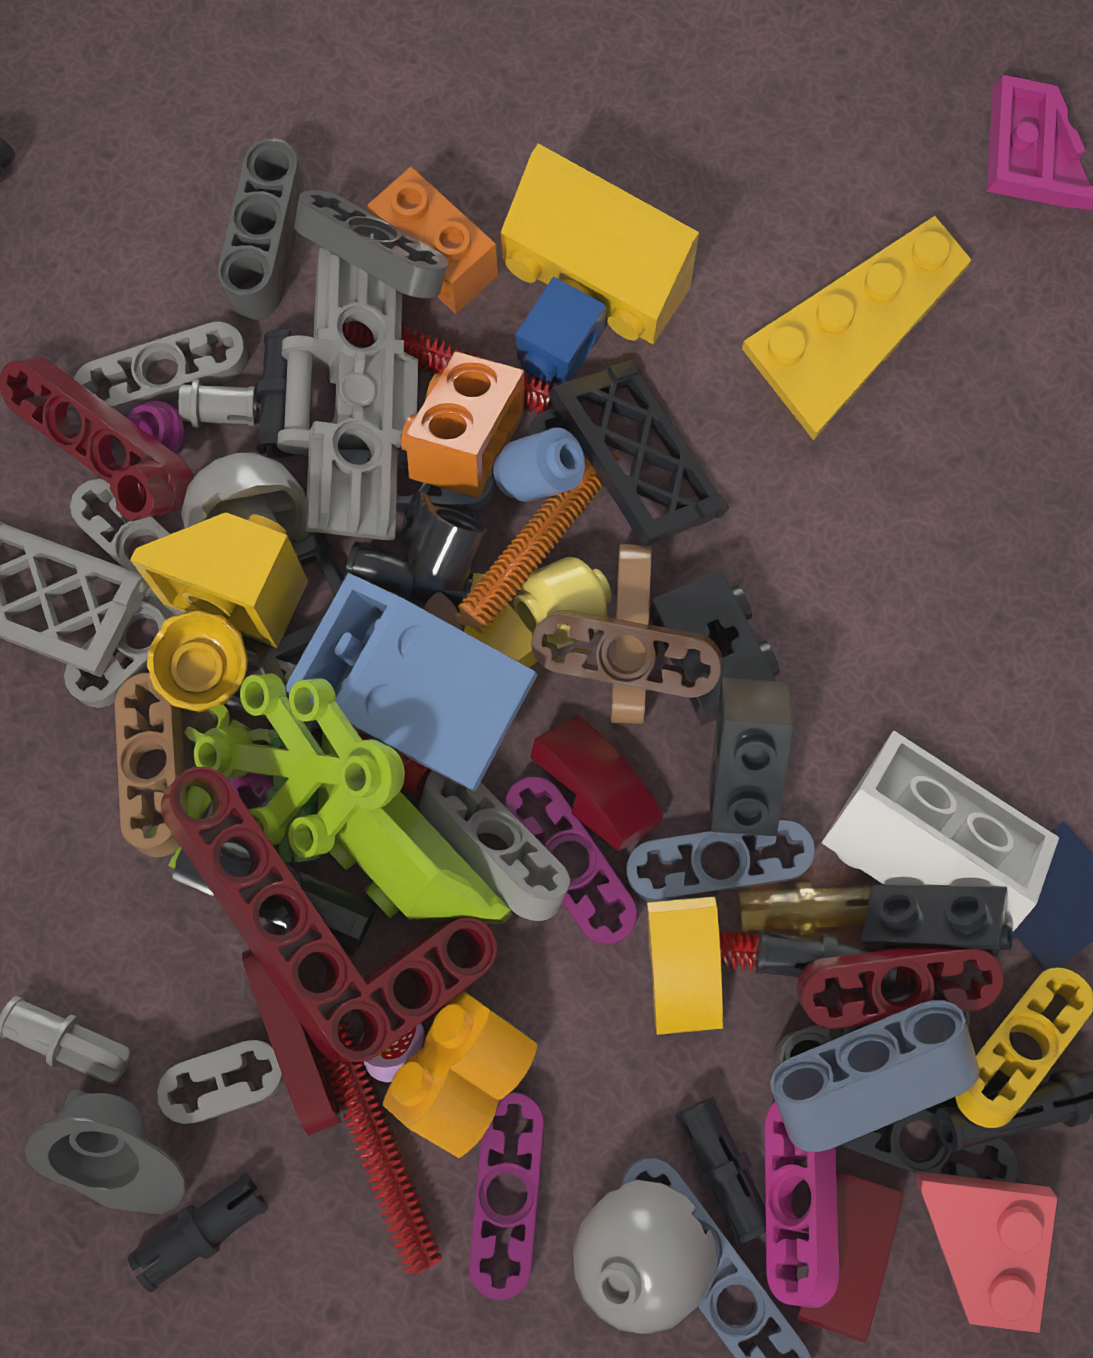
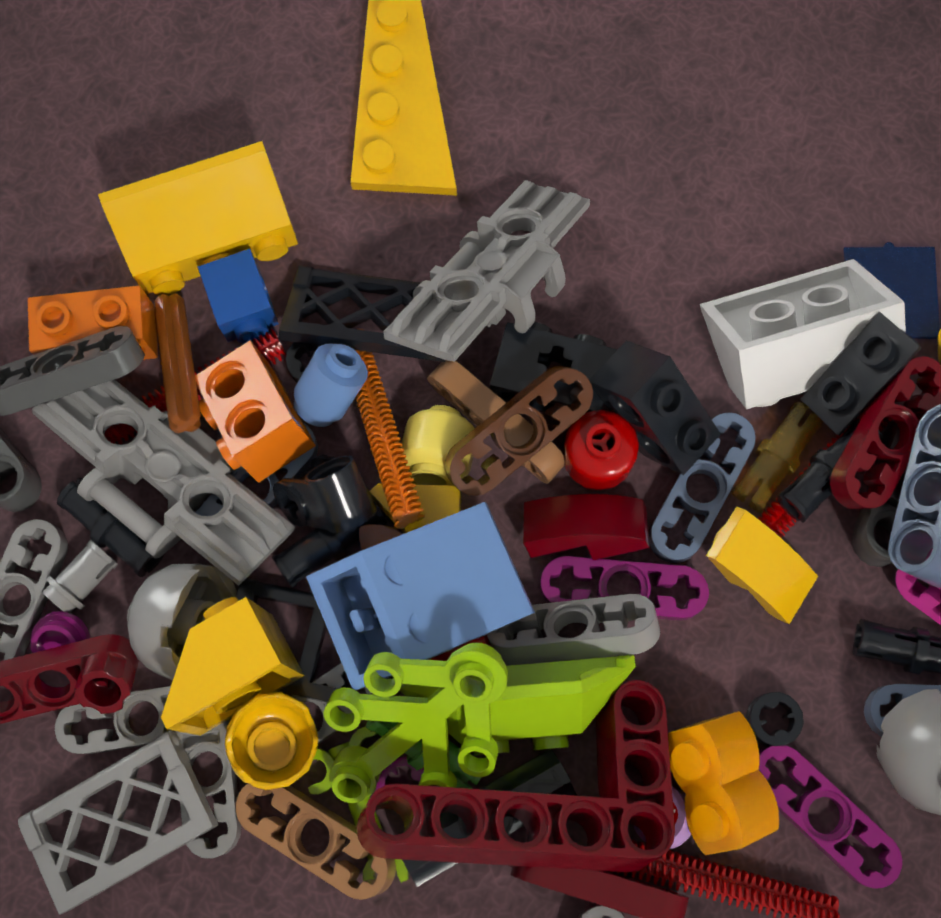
camera: 50 degrees left, 0 degrees up
(457, 329) = (177, 364): none -> dark orange axle
(545, 1100) = (770, 701): none -> black bush
(664, 760) = (600, 468): none -> red head
(754, 520) = (491, 274): none -> light grey piece

